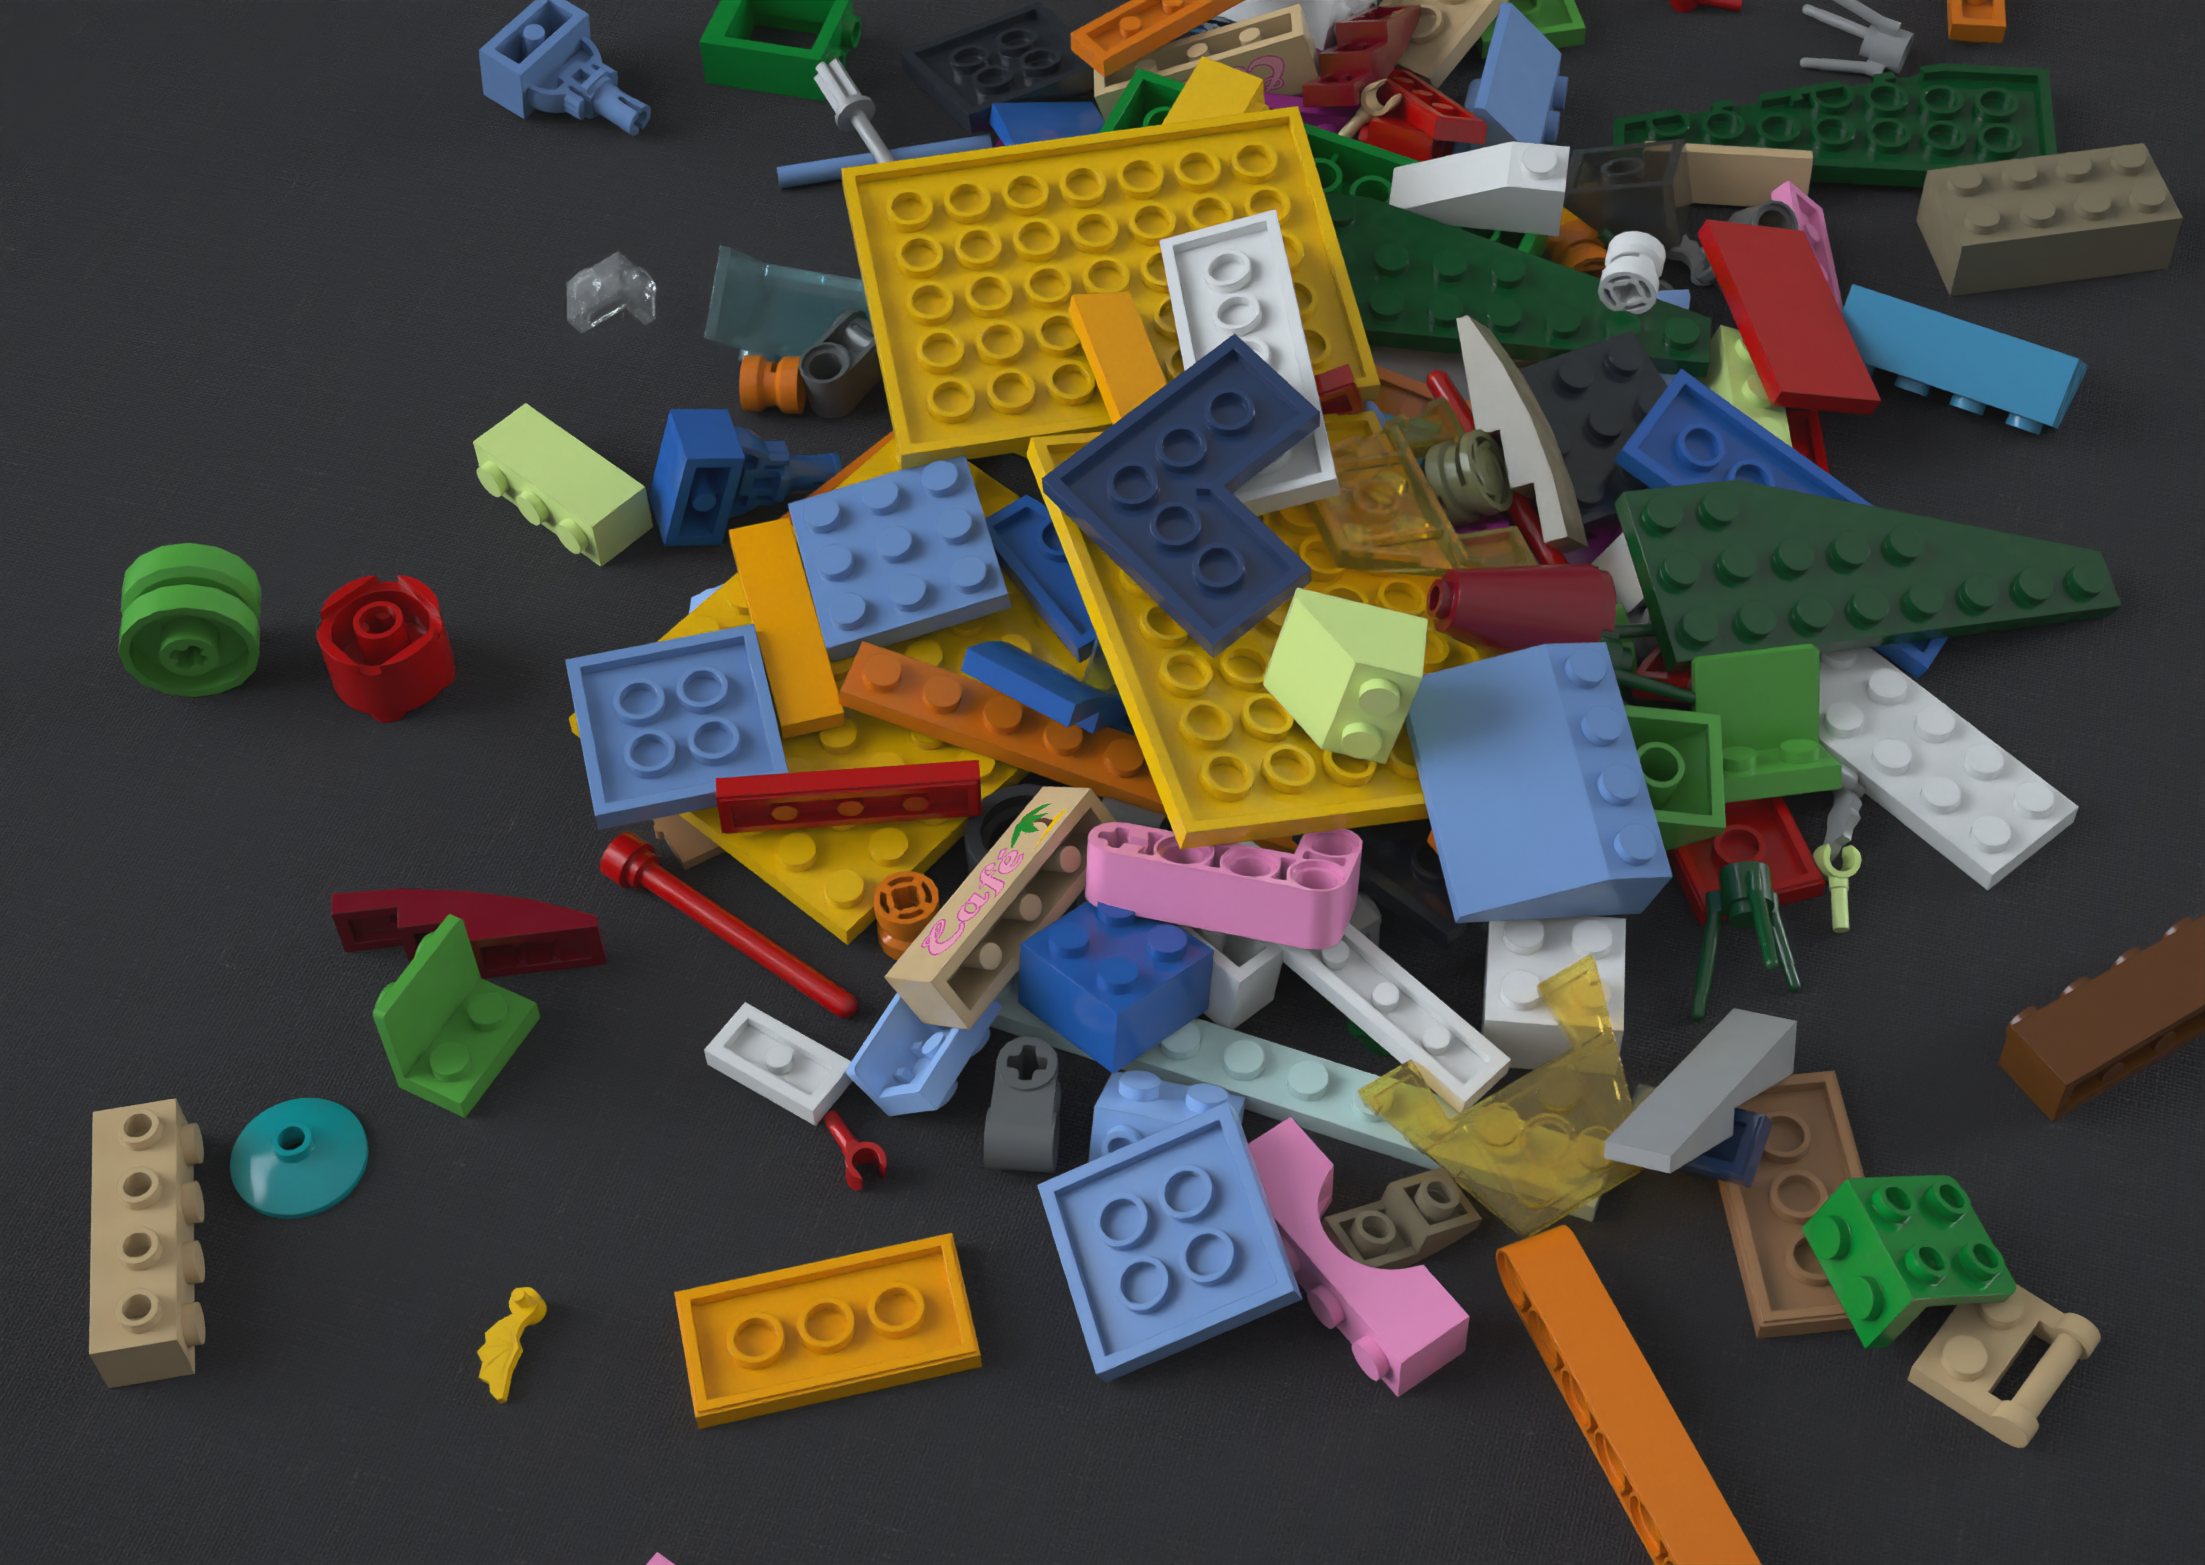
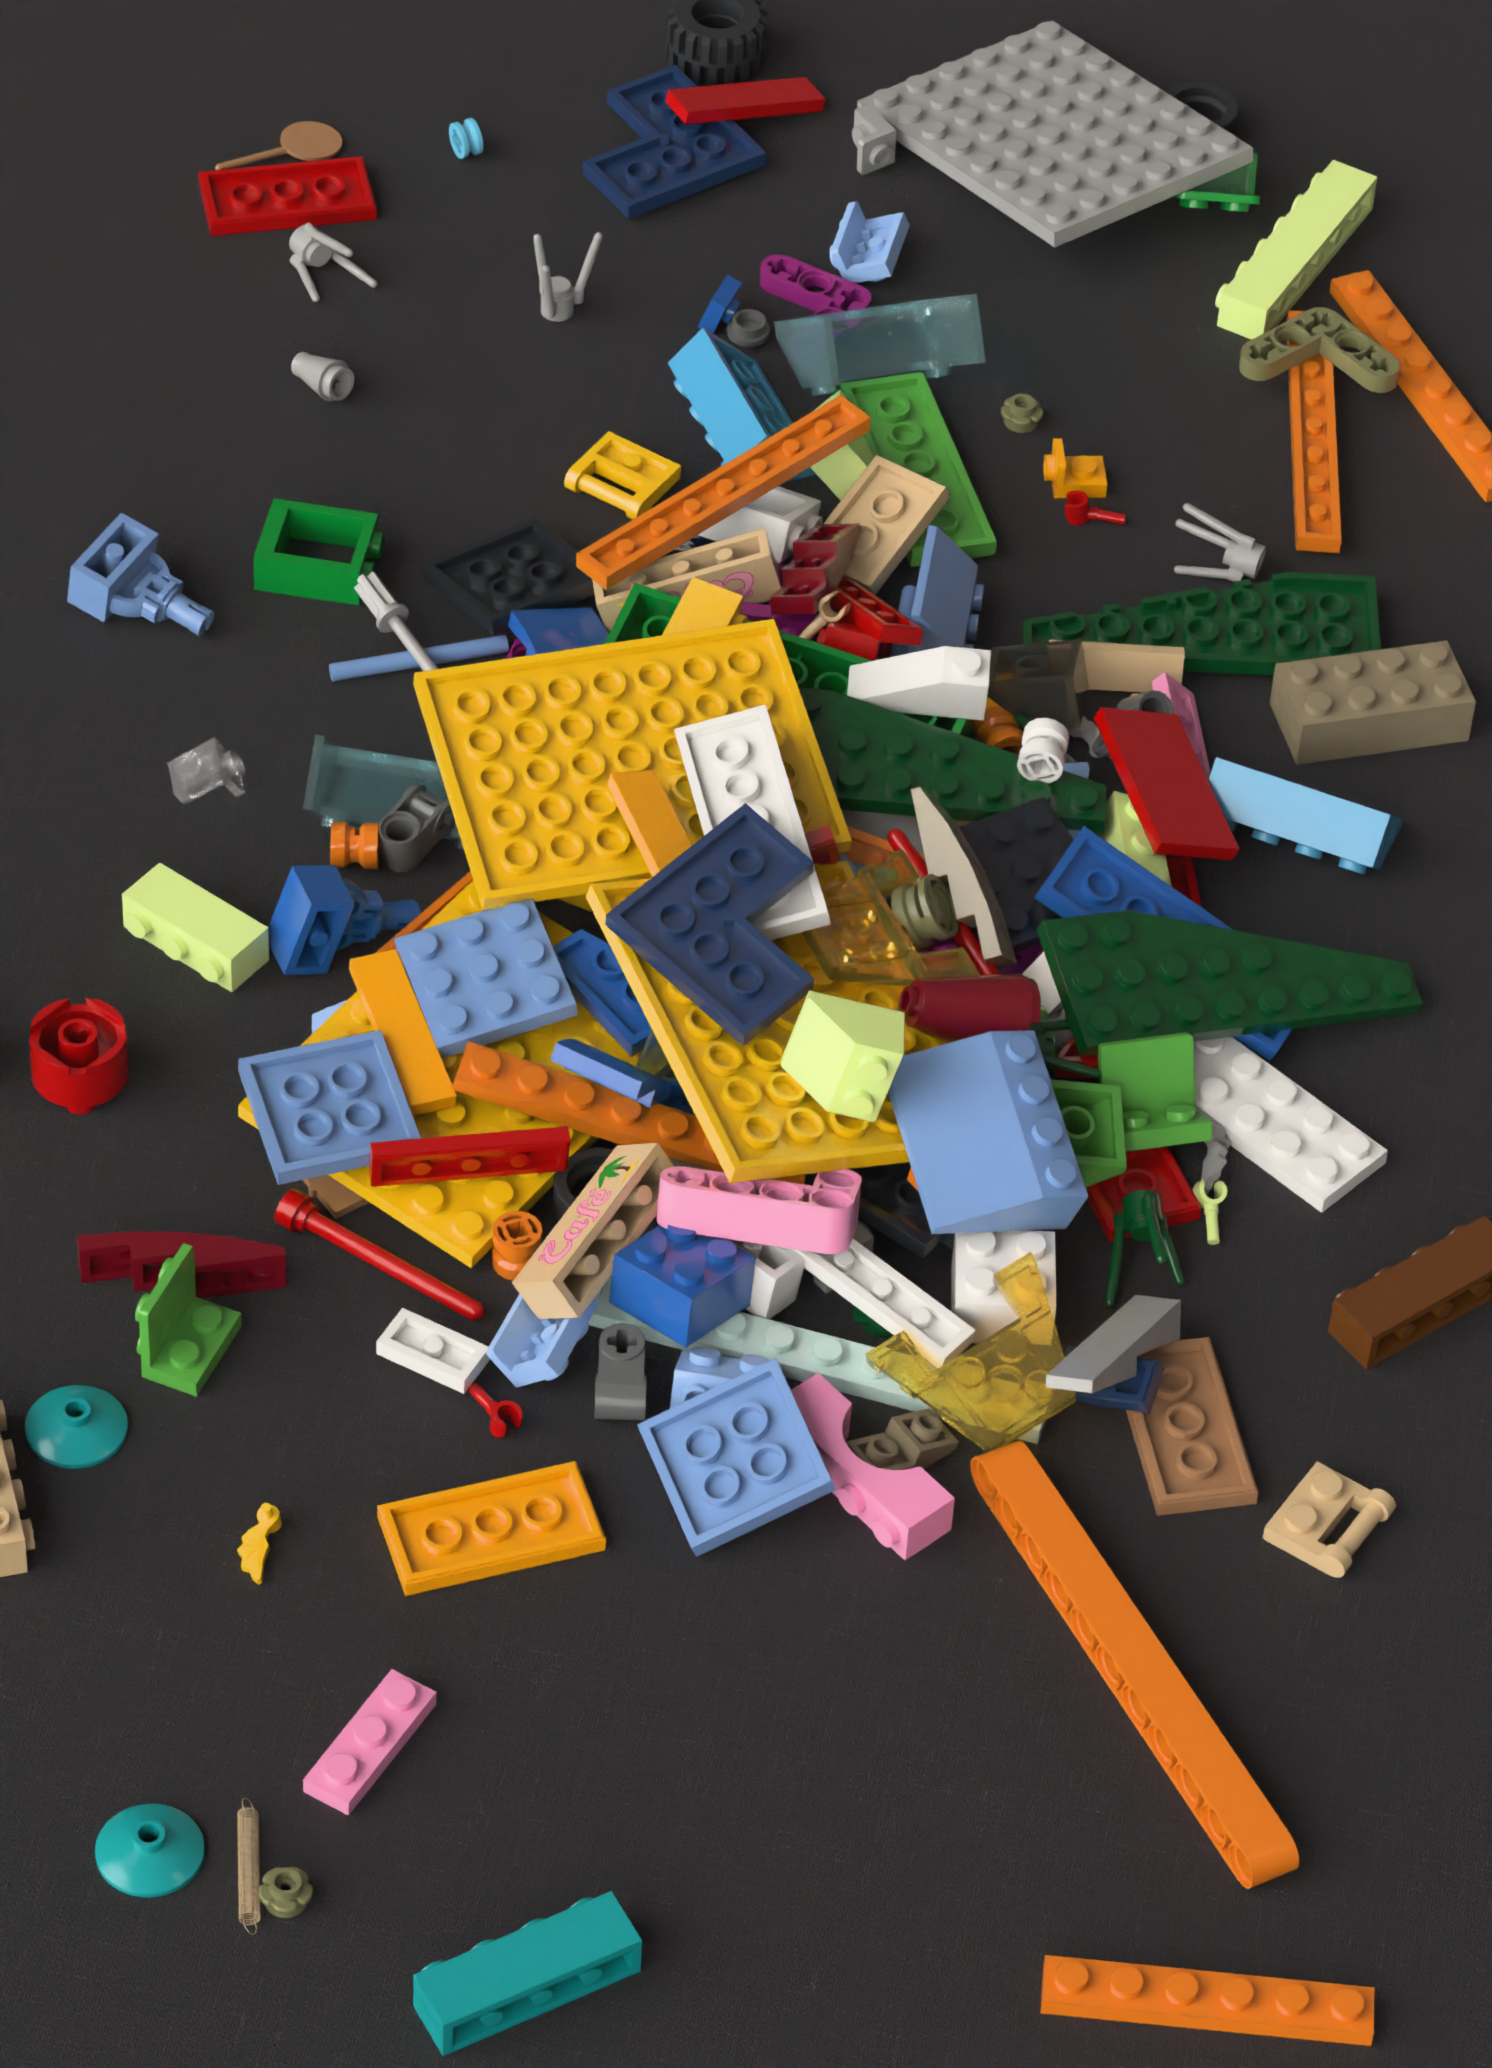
camera: 10 degrees left, 5 degrees down
(1903, 1248) = (1254, 1442): green bracket -> none

